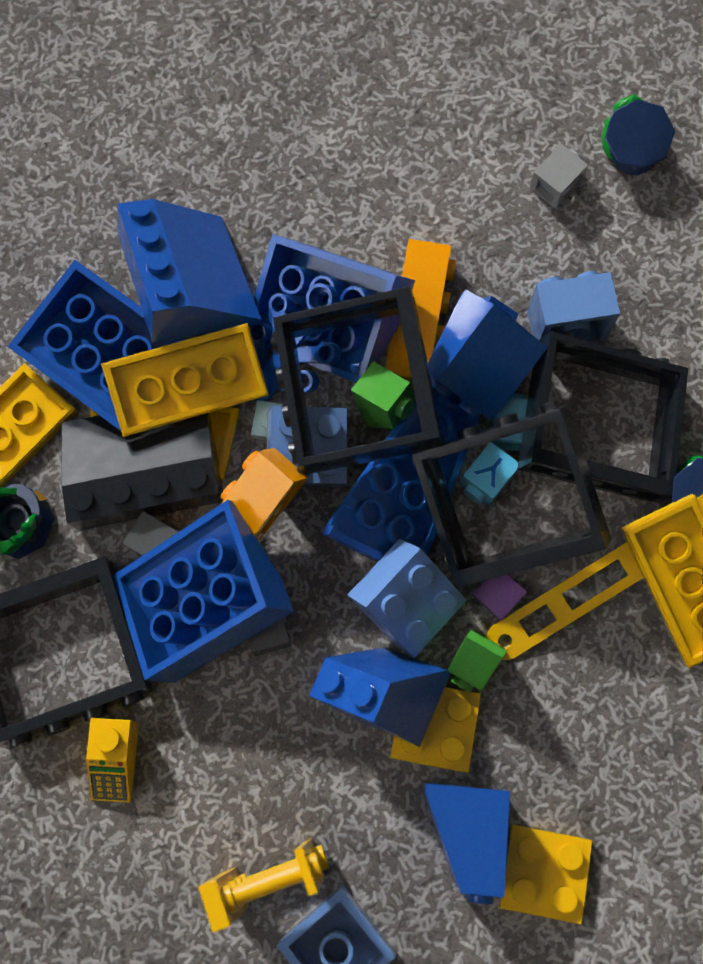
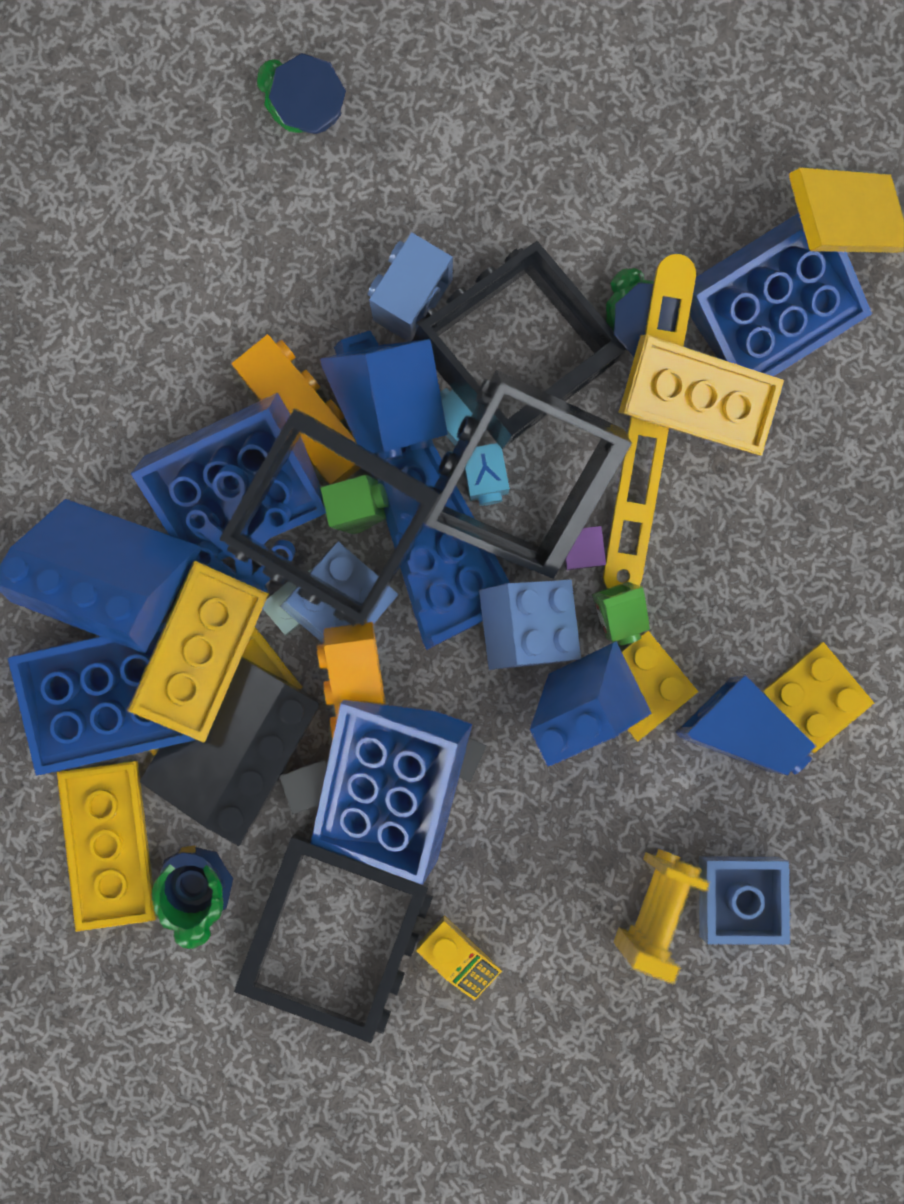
camera: 55 degrees left, 10 degrees up
(558, 175) = (280, 189): light grey brick -> none

